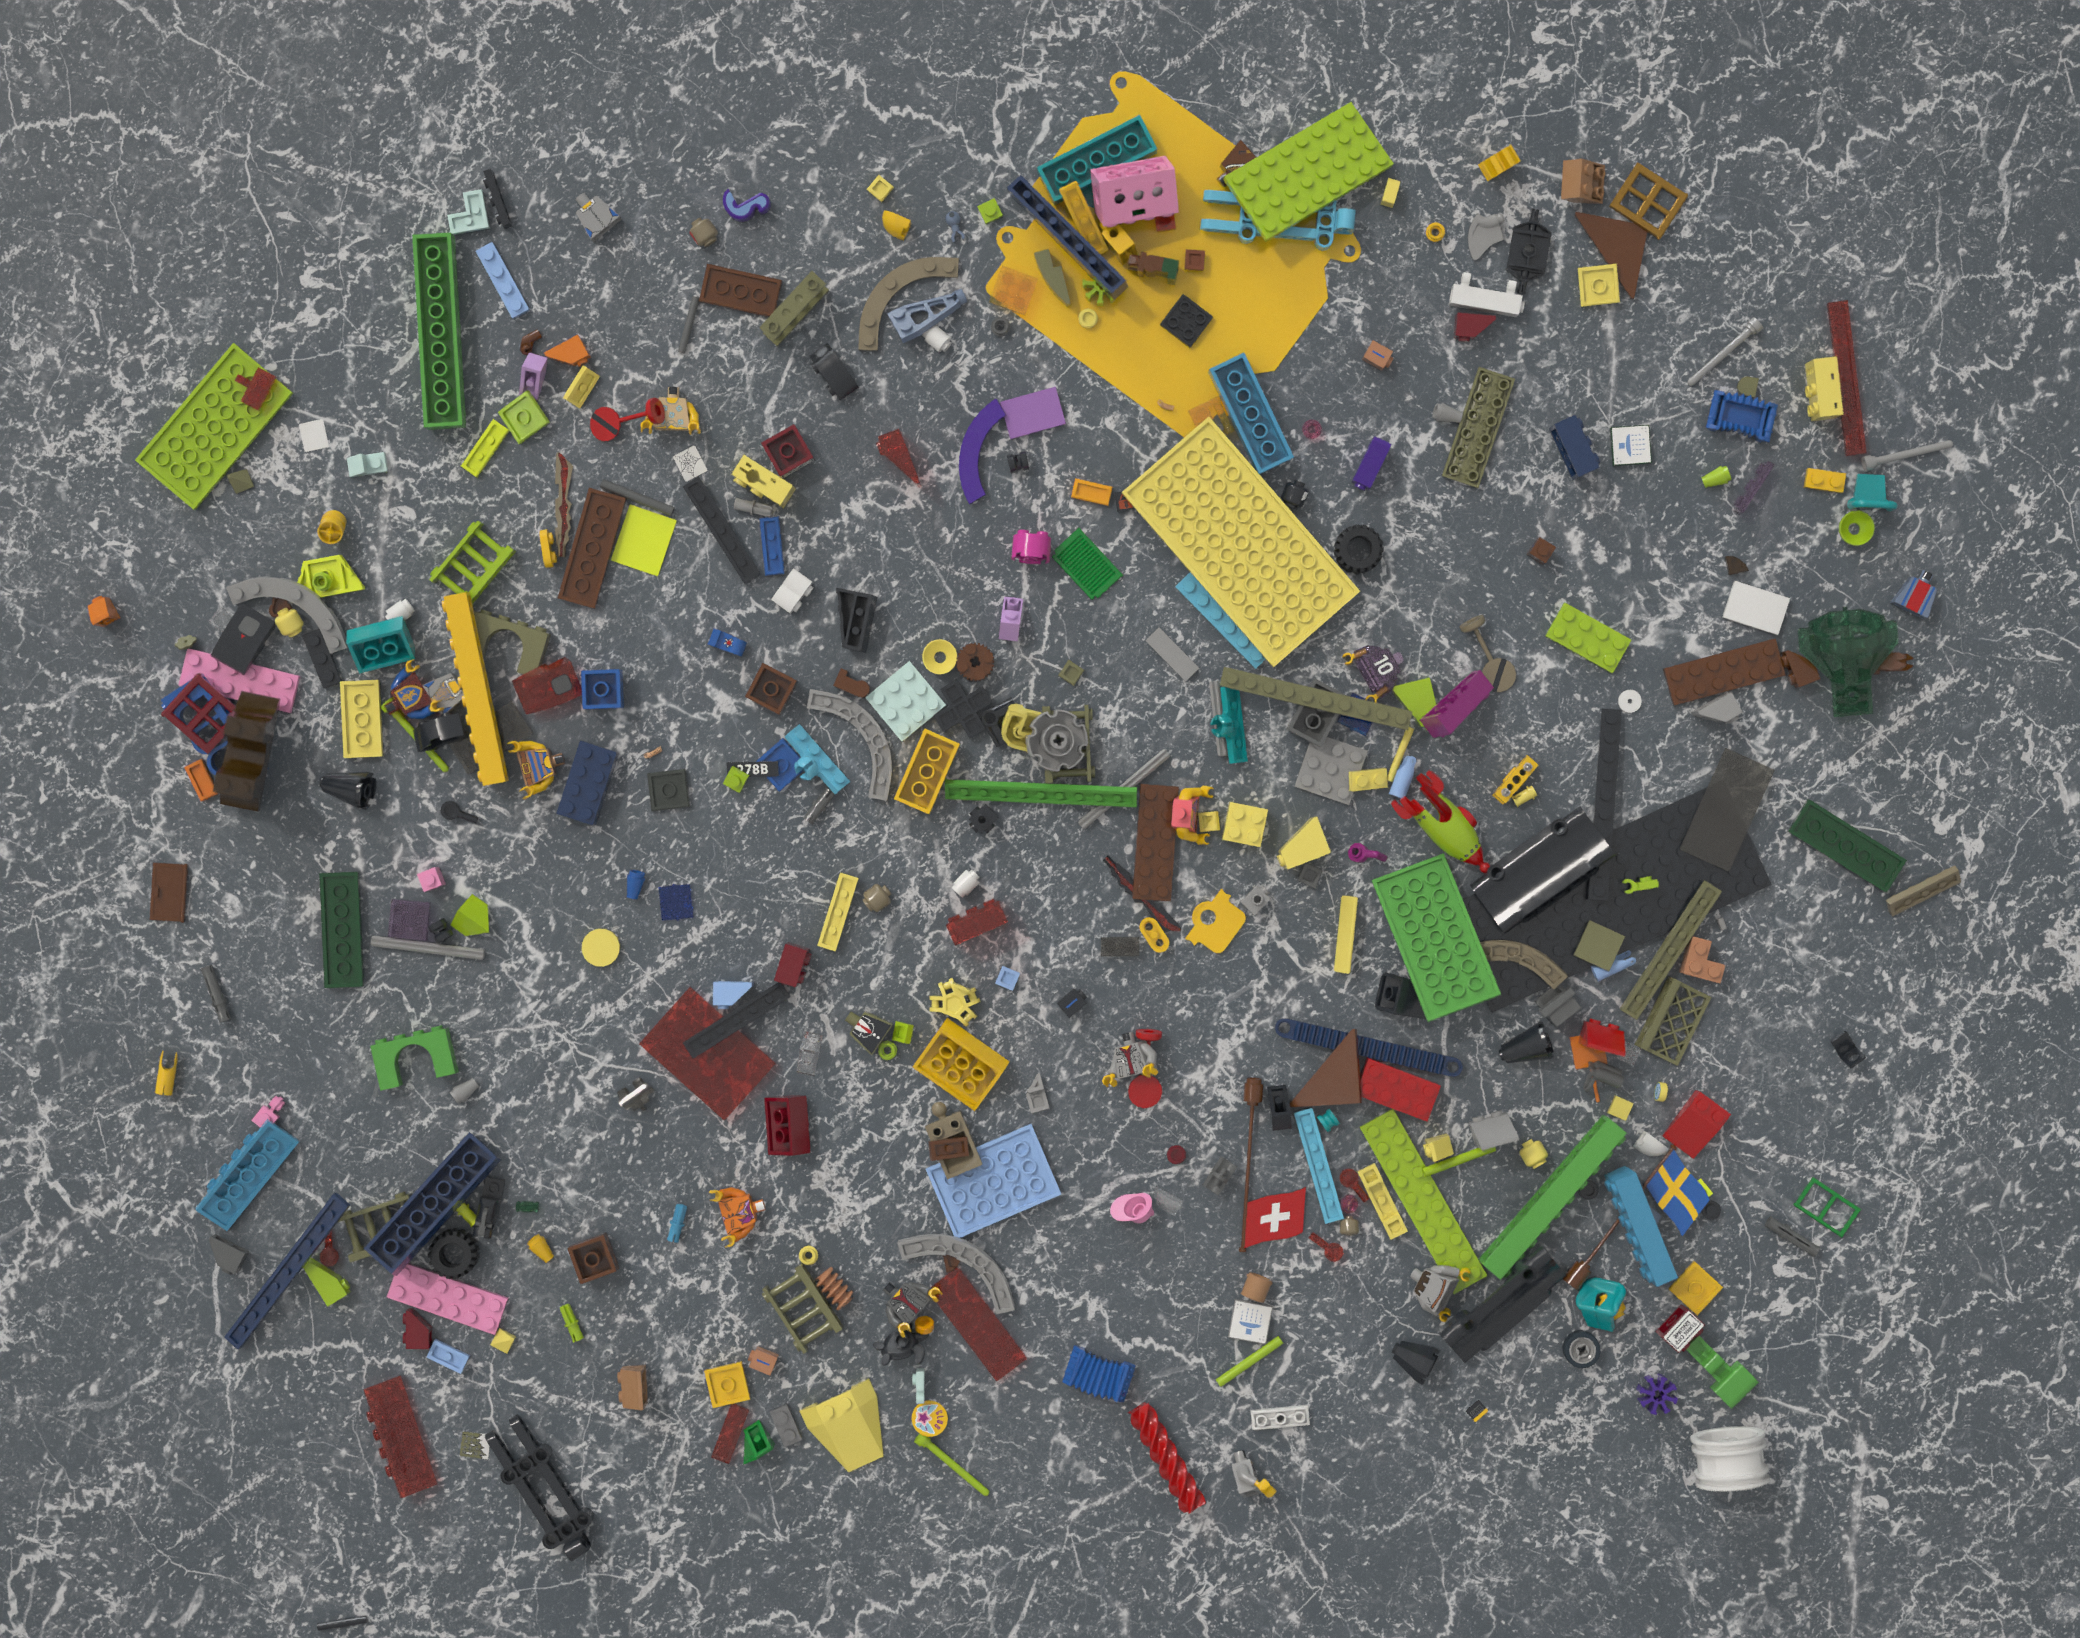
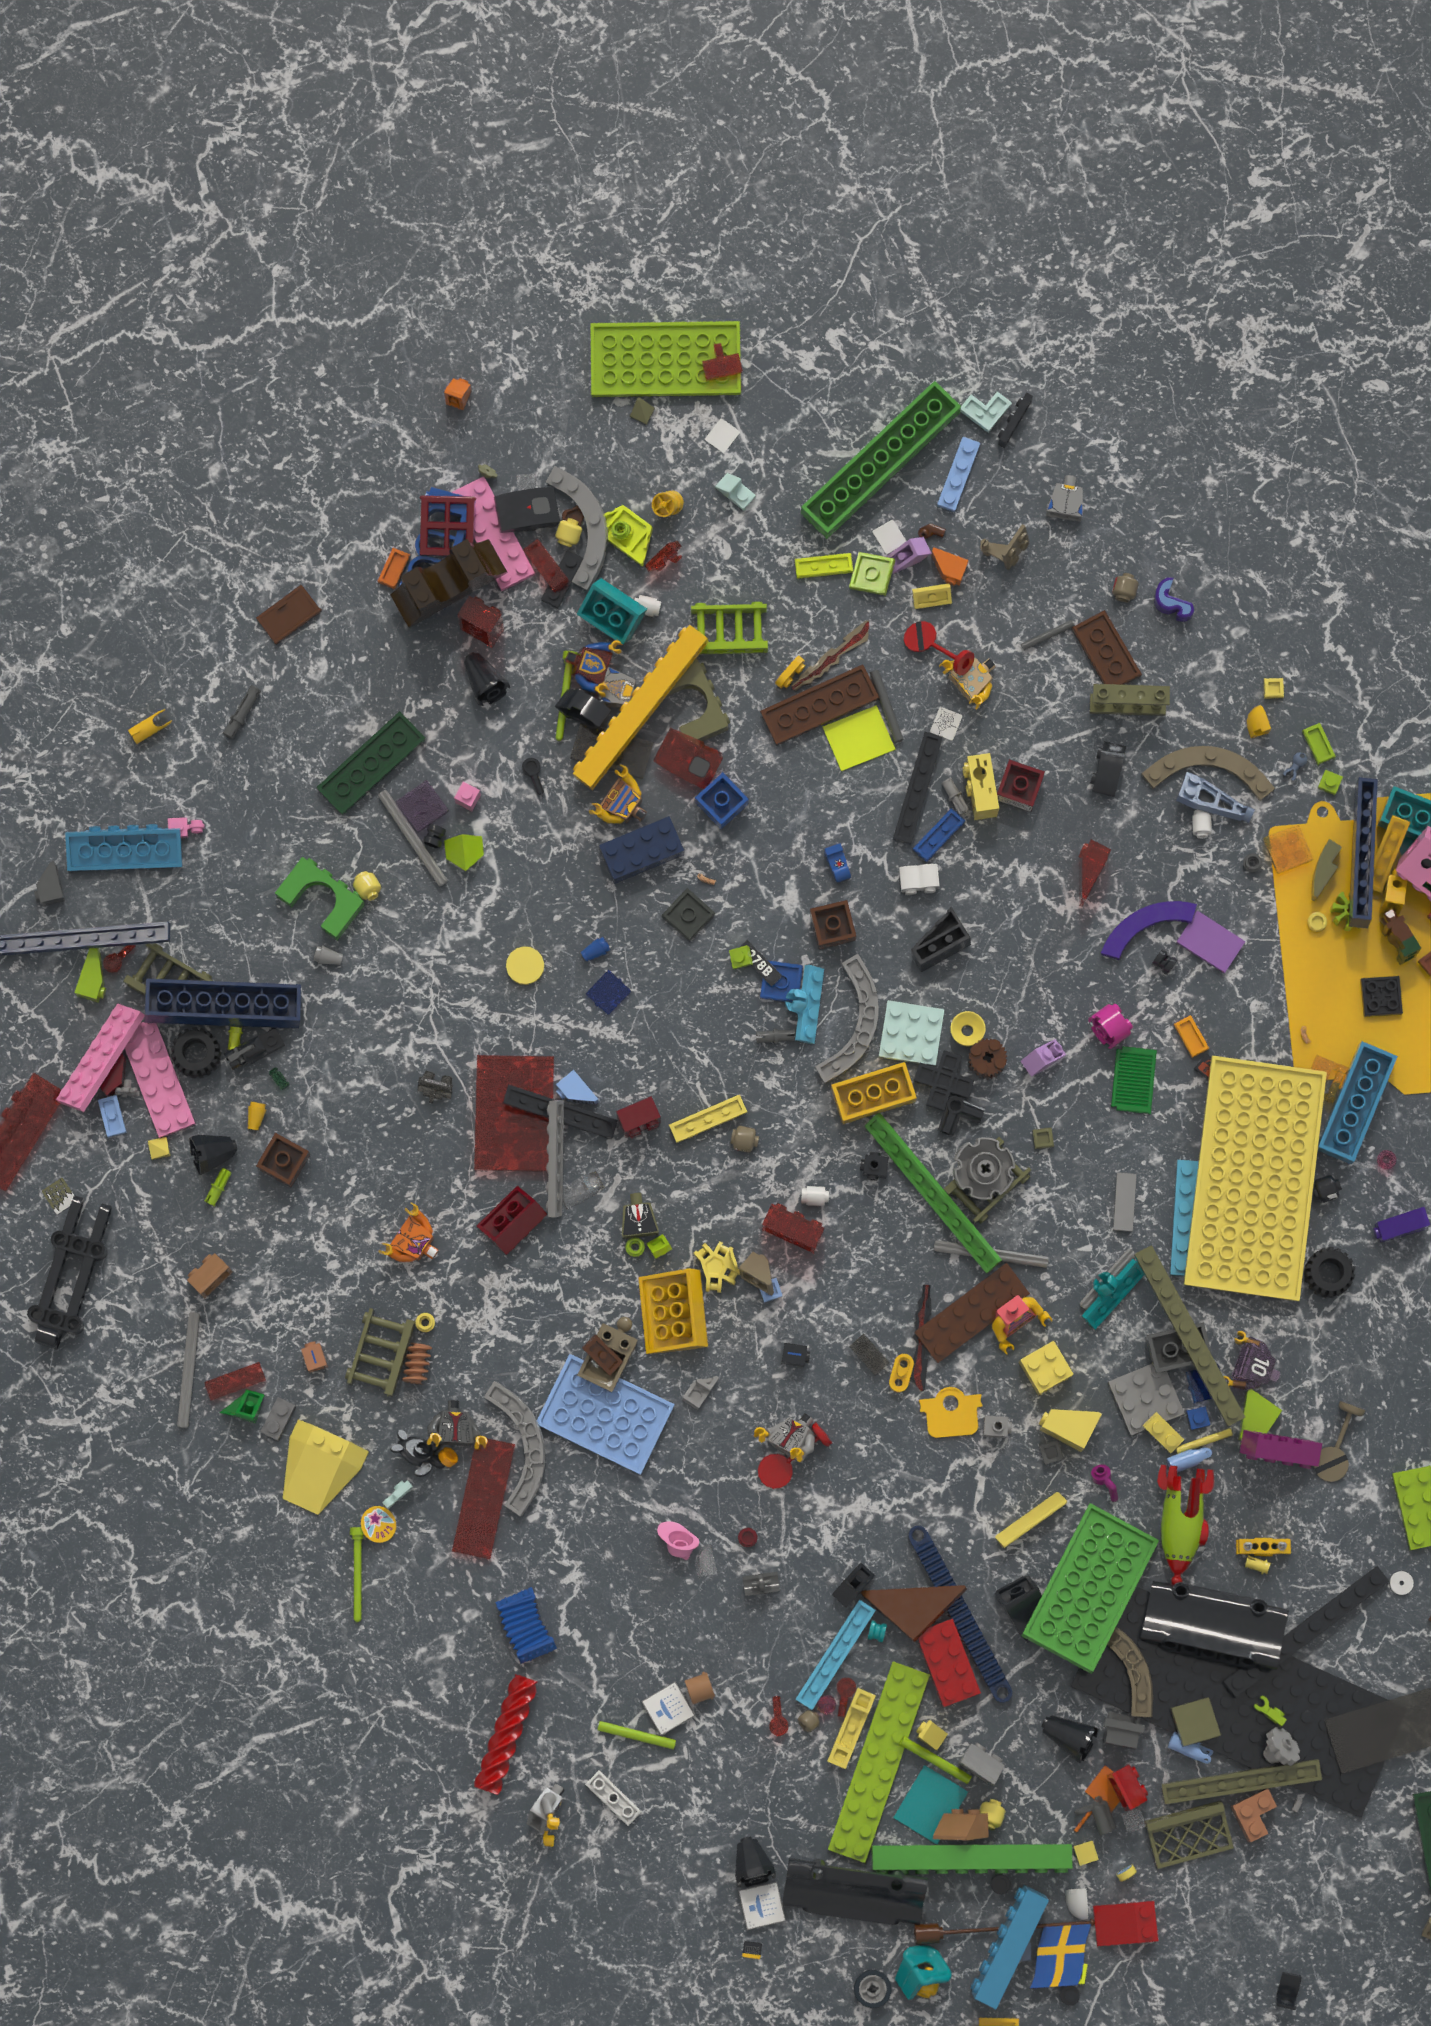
camera: 50 degrees right, 10 degrees down
(300, 662) = (546, 565): none -> clear red tile
(302, 752) = (481, 621): none -> clear red brick
(361, 718) = (542, 645): light yellow plate -> none
(371, 561) = (668, 552): none -> clear red plate
(395, 1329) = (100, 1057): none -> bright pink plate
(435, 1014) = (367, 886): none -> light yellow head
(437, 1329) = (127, 1090): none -> light grey plant
(506, 377) = (889, 536): none -> white sticker
(540, 1305) = (211, 1151): none -> black cone
(598, 299) = (1007, 553): none -> dark tan plate
(677, 1223) = (364, 1201): dark azure axle -> none
(691, 1461) = (188, 1370): none -> light grey axle
(727, 1384) = (271, 1346): yellow plate -> none
(765, 1051) = (555, 1165): none -> light grey plate
(857, 688) = (887, 983): reddish brown leg -> none
(950, 1262) = (514, 1436): reddish brown tile -> none
(953, 193) = (1318, 743): none -> lime tile
(987, 976) = (757, 1272): none -> dark tan slope
(1016, 726) = (967, 1129): light yellow brick -> none
(1209, 821) = (1023, 1339): light yellow tile -> none
(1272, 1215) = (765, 1653): red flag -> none
(1379, 743) = (1198, 1418): none -> blue plate
(1436, 1287) = (820, 1829): light grey torso -> none
(1451, 1377) = (762, 1905): none -> white tile
(1486, 1189) = (928, 1801): none -> teal piece
(1525, 1184) = (962, 1825): none -> medium nougat slope
(1673, 900) = (1281, 1747): none -> light grey plant

